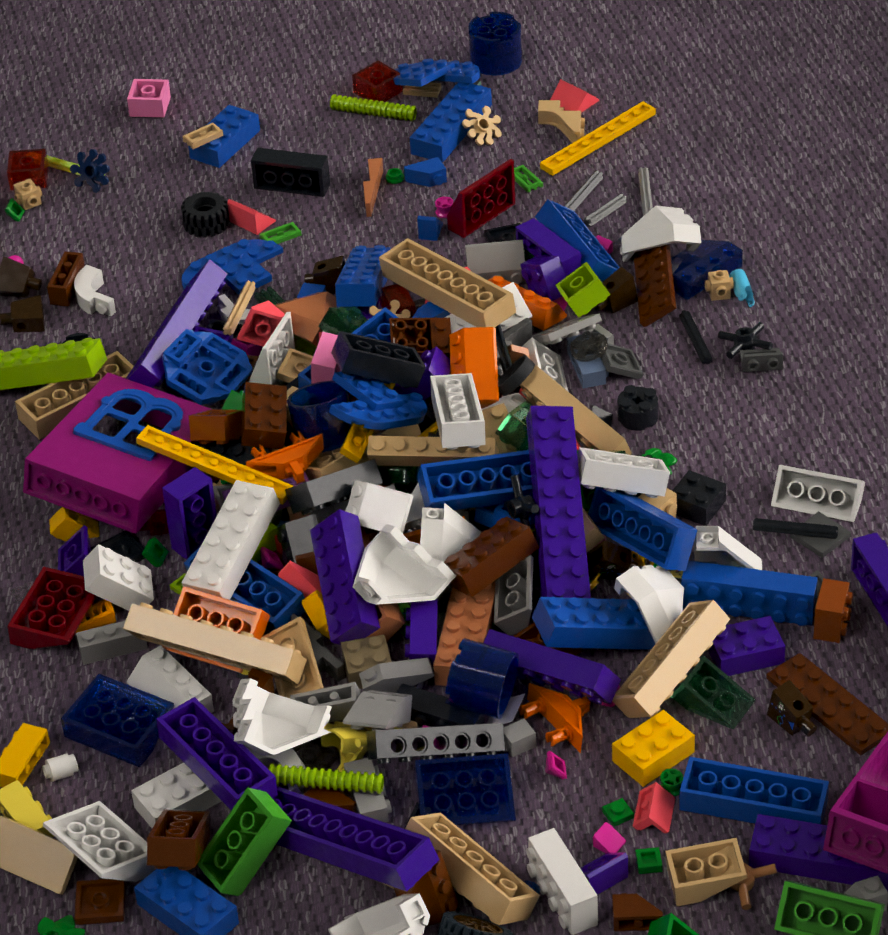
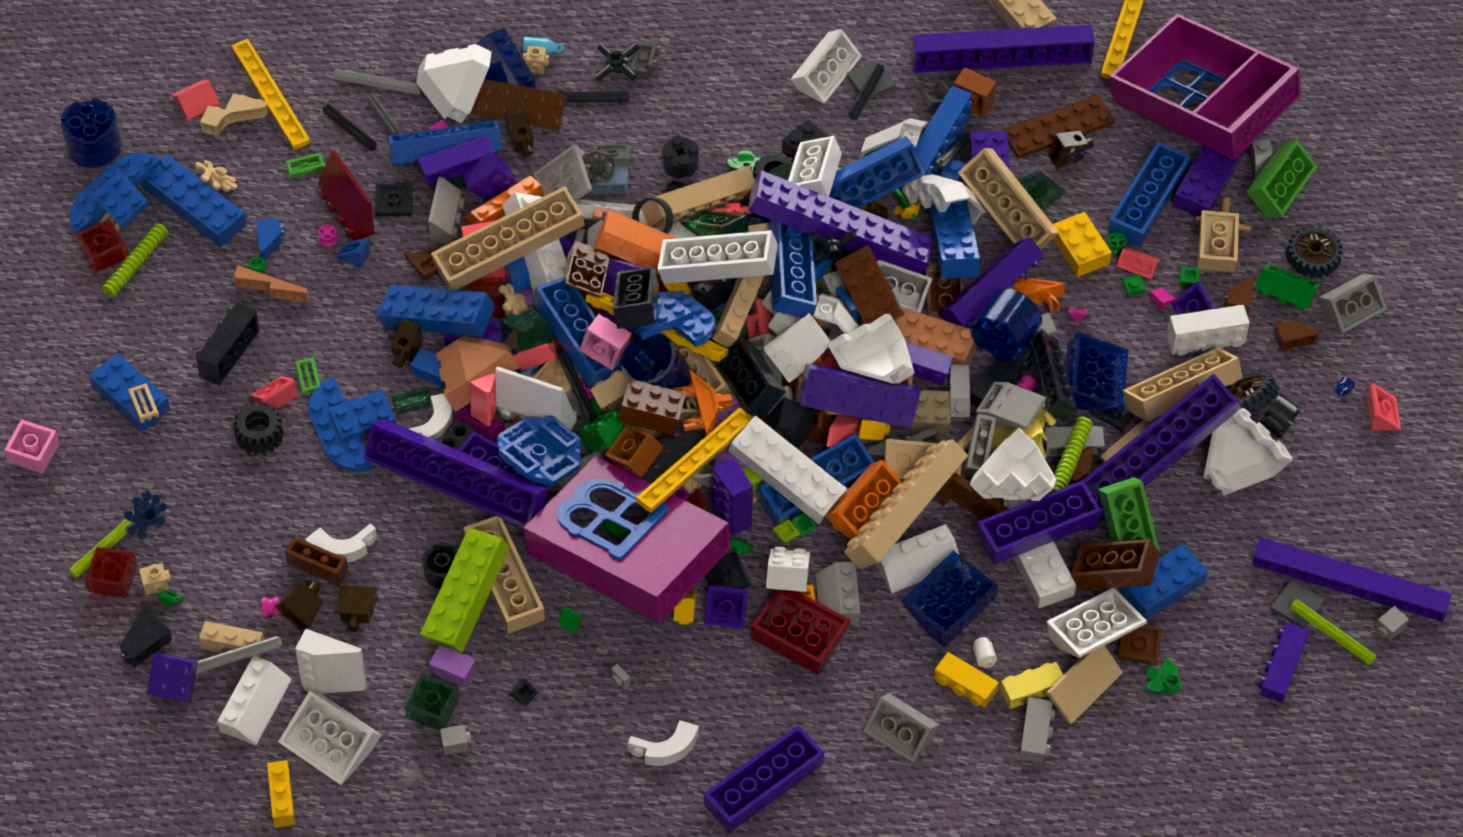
camera: 80 degrees left, 15 degrees up
(239, 308) = (435, 419): tan axle -> none
(582, 290) = (527, 150): lime brick -> none
(728, 603) = (952, 151): none -> black axle

